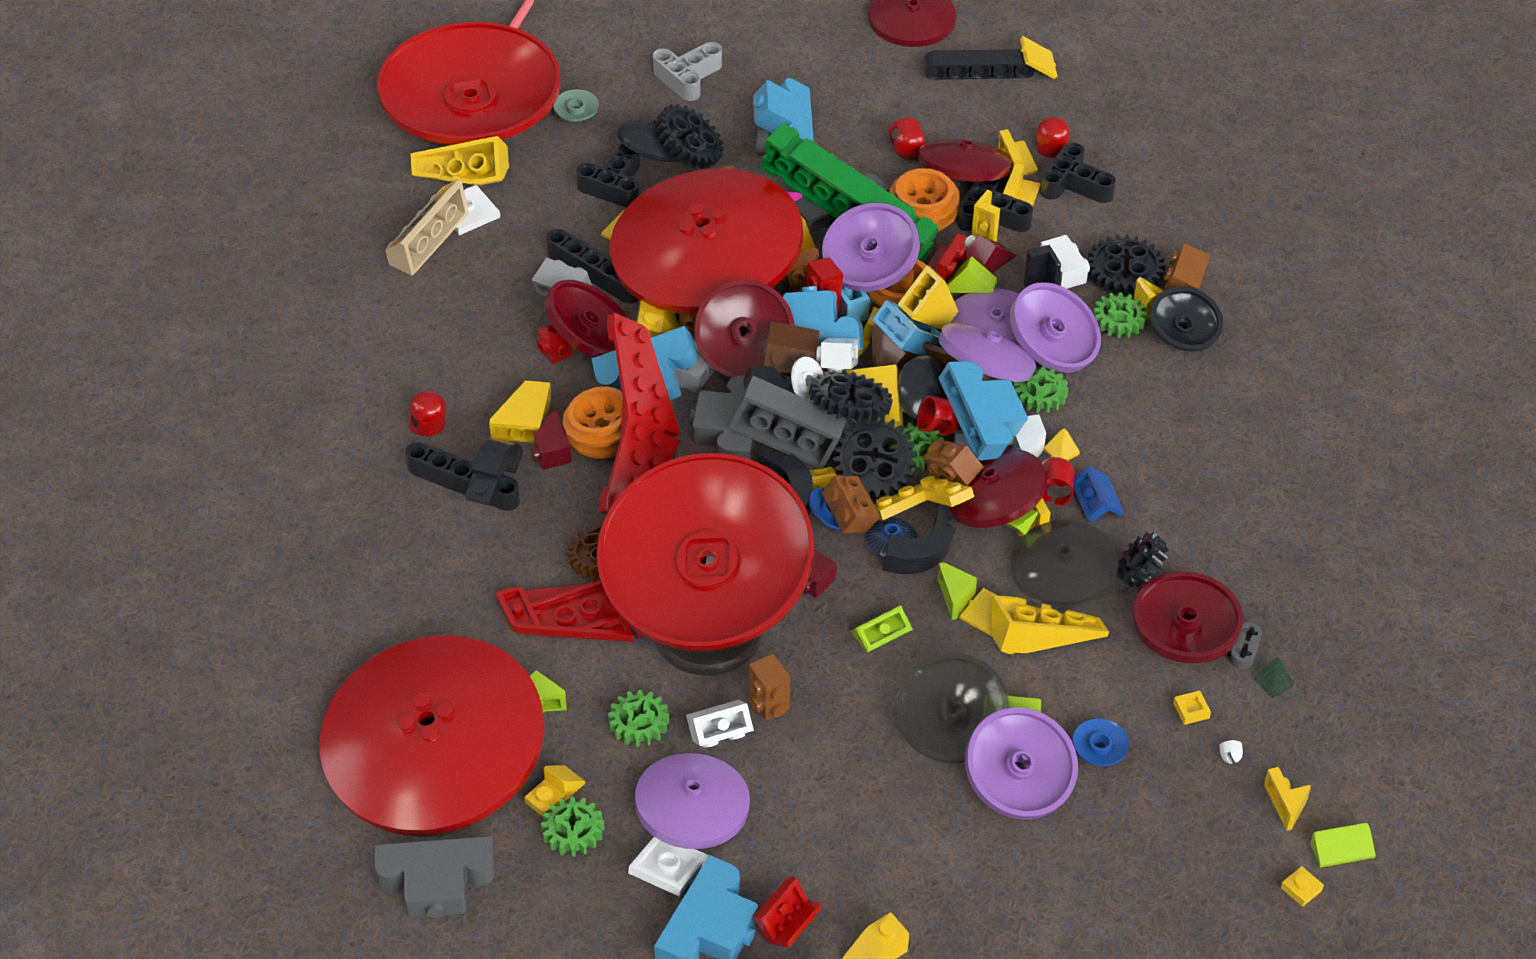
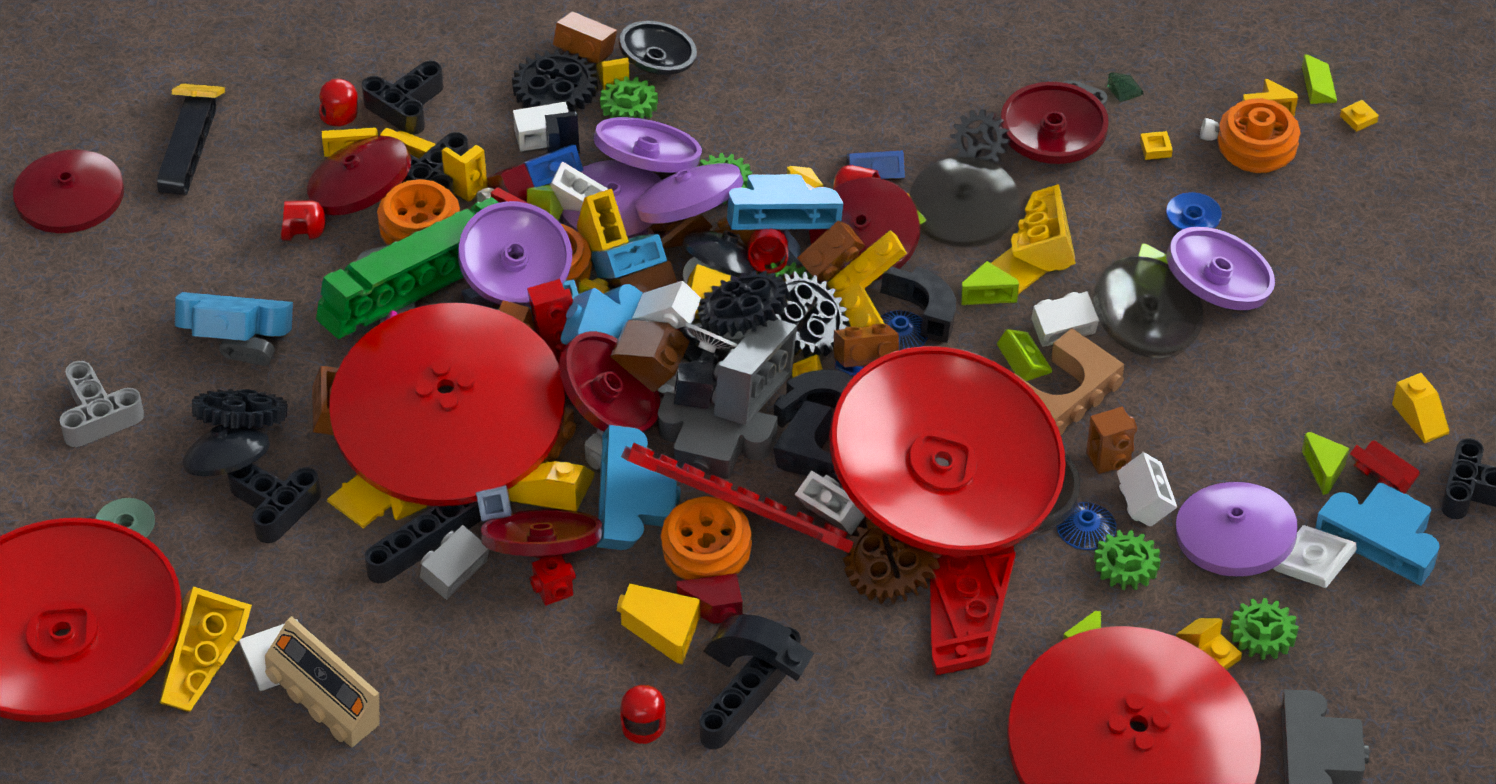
camera: 80 degrees left, 0 degrees up
(620, 294) = (494, 503): none -> sand blue slope
(684, 700) = (1084, 533): none -> dish
(789, 862) = (1324, 459): none -> lime slope
(858, 679) = (1092, 367): none -> medium nougat arch
(921, 639) = (1058, 316): none -> white brick
(980, 285) = (572, 186): none -> white slope
(1009, 271) = (545, 167): none -> blue panel
(1226, 801) = (1258, 135): none -> orange wheel

